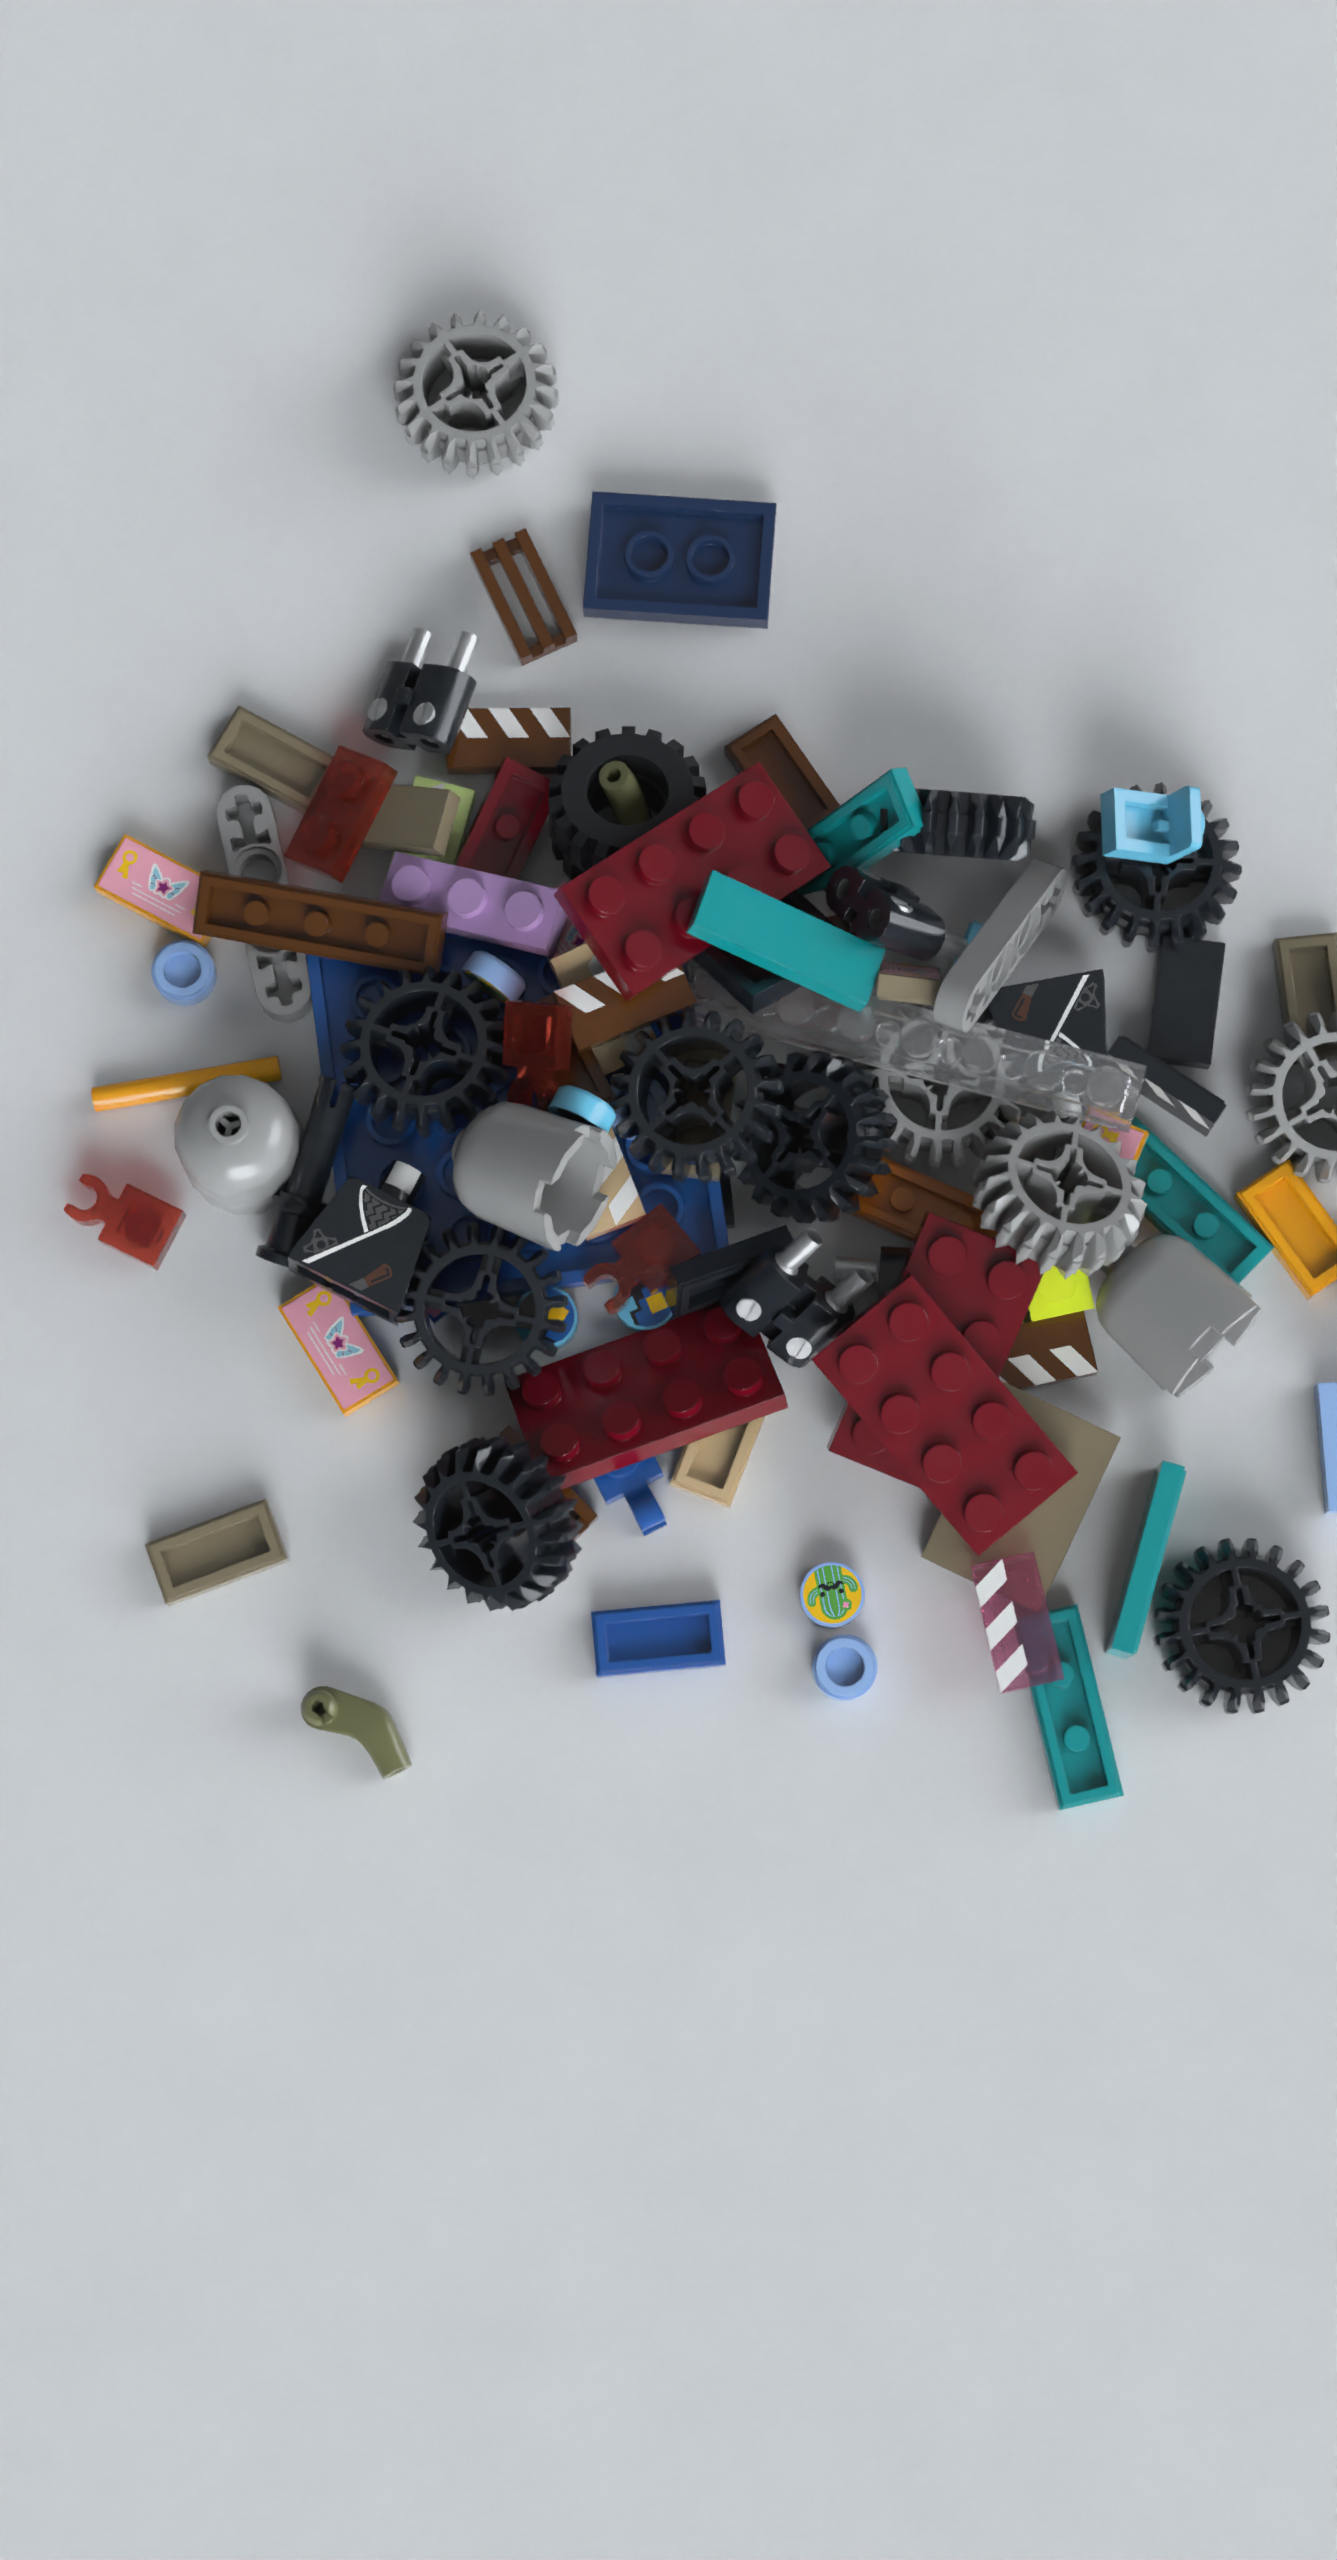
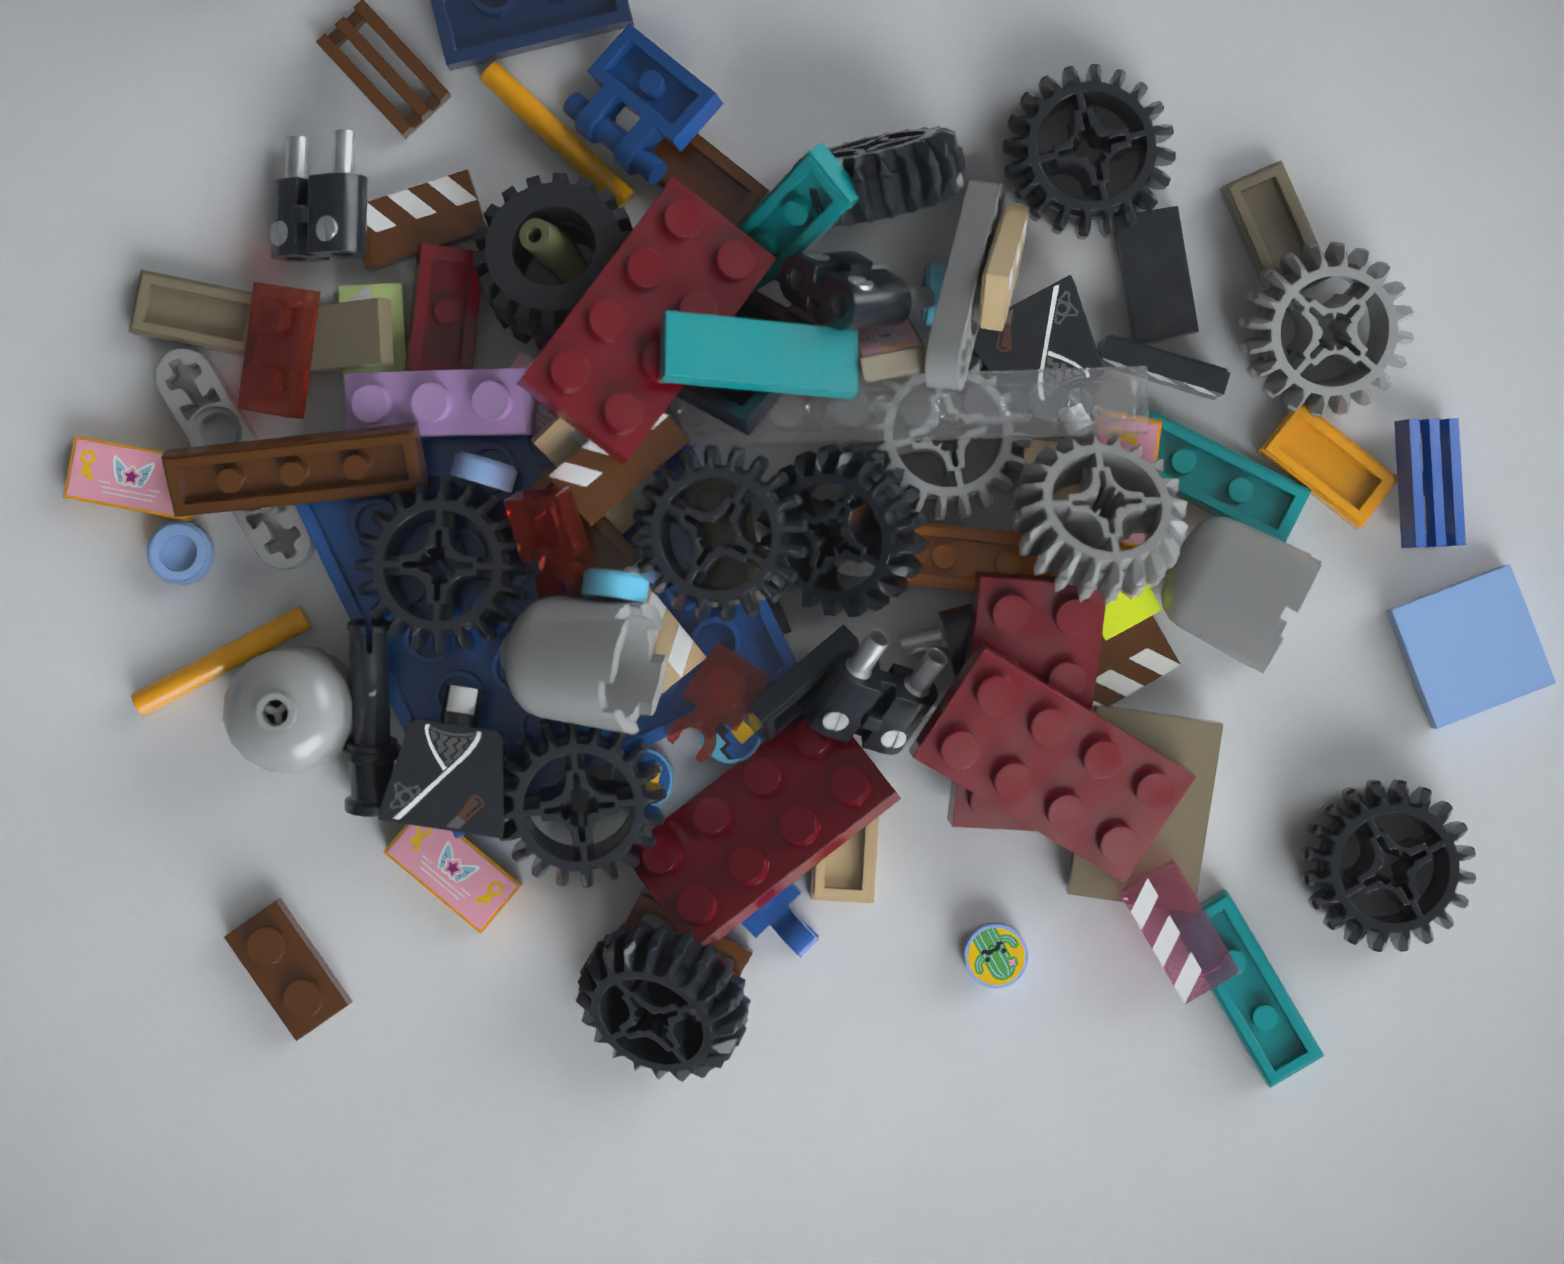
camera: 20 degrees left, 10 degrees up
(133, 1224) = (219, 814): clear red plate -> none
(148, 1392) = (288, 969): none -> reddish brown plate
(217, 1552) = (405, 1099): dark tan tile -> none
(360, 1719) = (594, 1214): olive arm -> none
(658, 1638) = (846, 1047): blue tile -> none
(660, 697) = (554, 132): none -> light orange bar
(766, 684) = (654, 88): none -> blue plate
(844, 1667) = (1028, 1018): light blue tile -> none
(1041, 941) = (1003, 267): none -> tan tile
(1146, 1560) = (1280, 833): teal tile -> none
(1151, 824) = (1078, 117): medium azure bracket -> none

